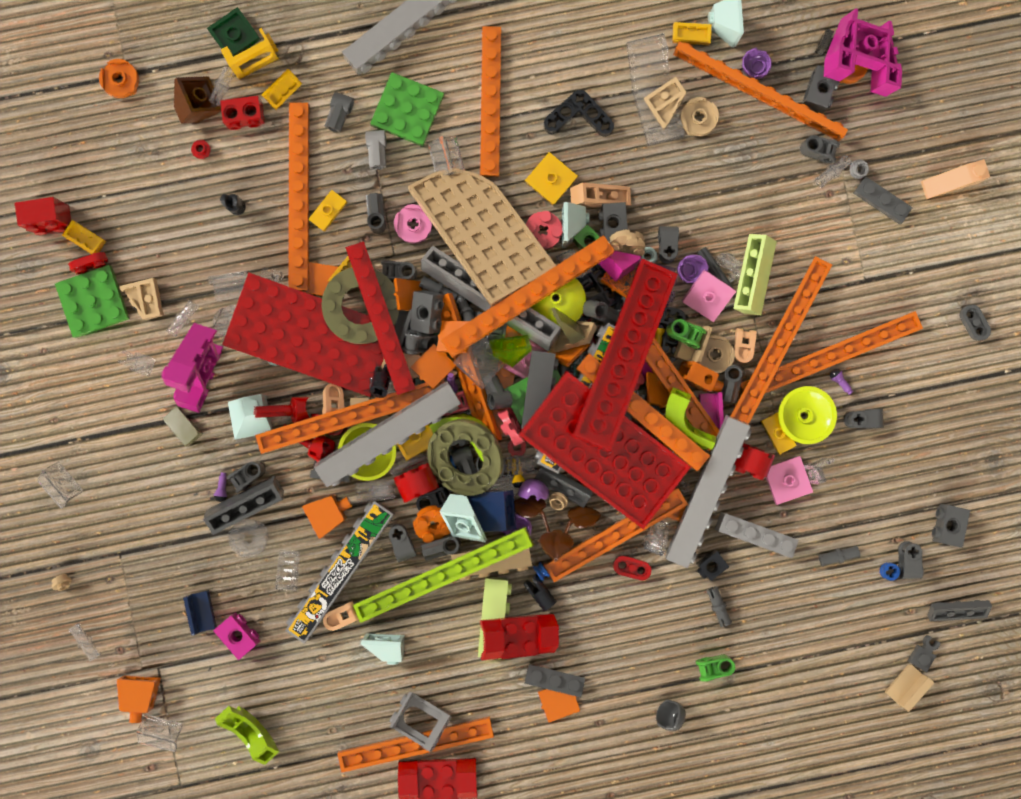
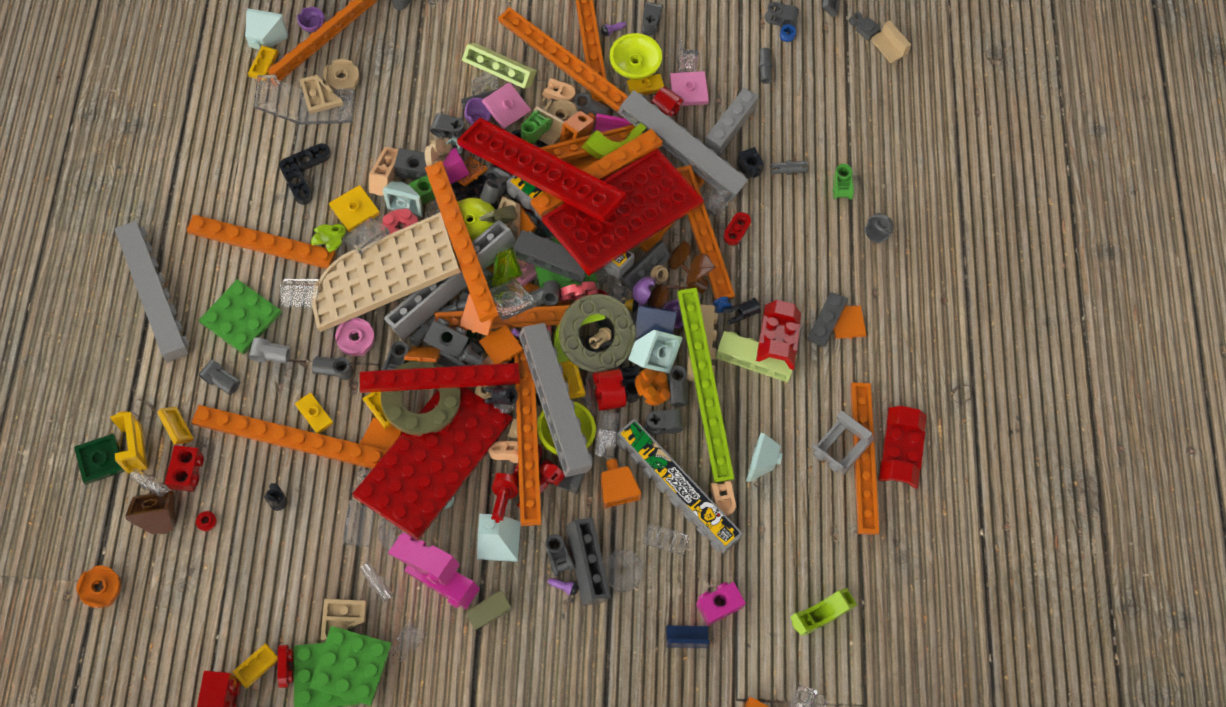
camera: 75 degrees left, 20 degrees down
(99, 320) = (351, 666): none -> bright green plate
(469, 463) = (602, 336): none -> tan pin
(510, 162) = (329, 235): none -> lime plate
(520, 200) = (365, 235): none -> clear plate

